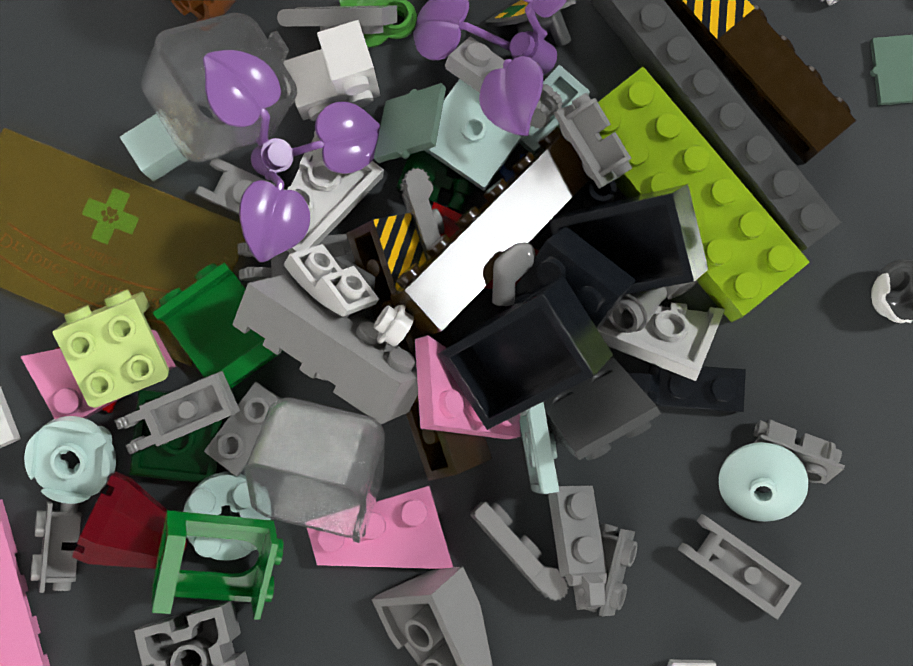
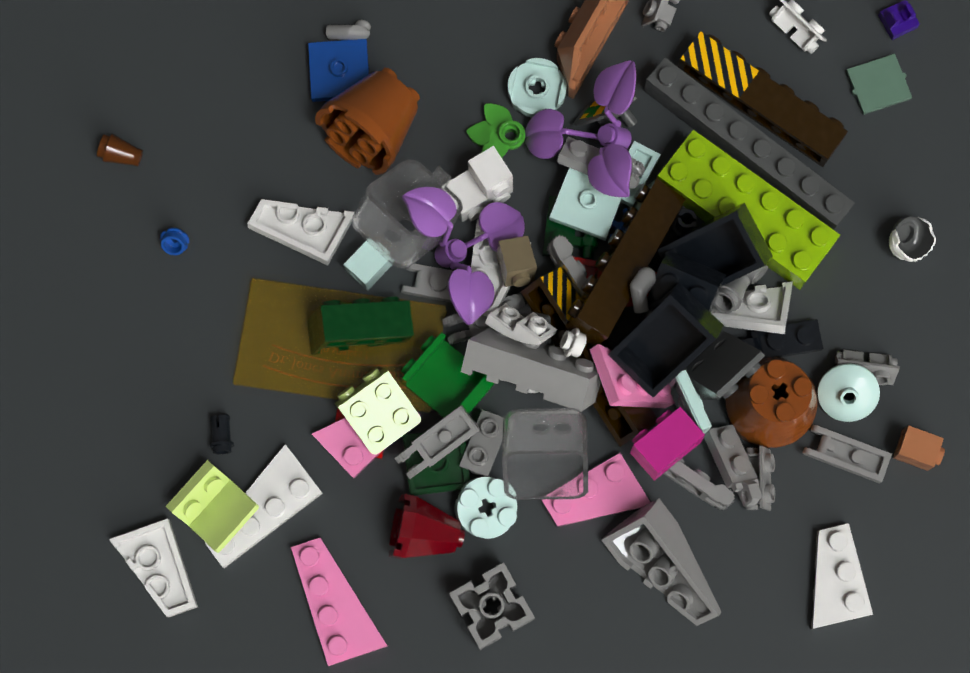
camera: 15 degrees left, 5 degrees down
(55, 564) = (370, 572): light grey hinge -> none
(87, 441) = (381, 505): light aqua plate -> none
(90, 80) = (303, 229): none -> white wing
(120, 223) = (360, 324): none -> dark green wedge
(249, 586) = (518, 550): green panel -> none
(351, 189) = (516, 261): none -> dark tan brick
(370, 17) = (469, 146): light grey hinge -> none
(410, 123) = (542, 206): sand green piece -> none
(490, 496) = (666, 442): none -> dark pink brick
(601, 158) = (682, 198): light grey hinge -> none
(628, 481) = (770, 421): none -> dark orange cone
(841, 584) = (919, 448): none -> nougat brick

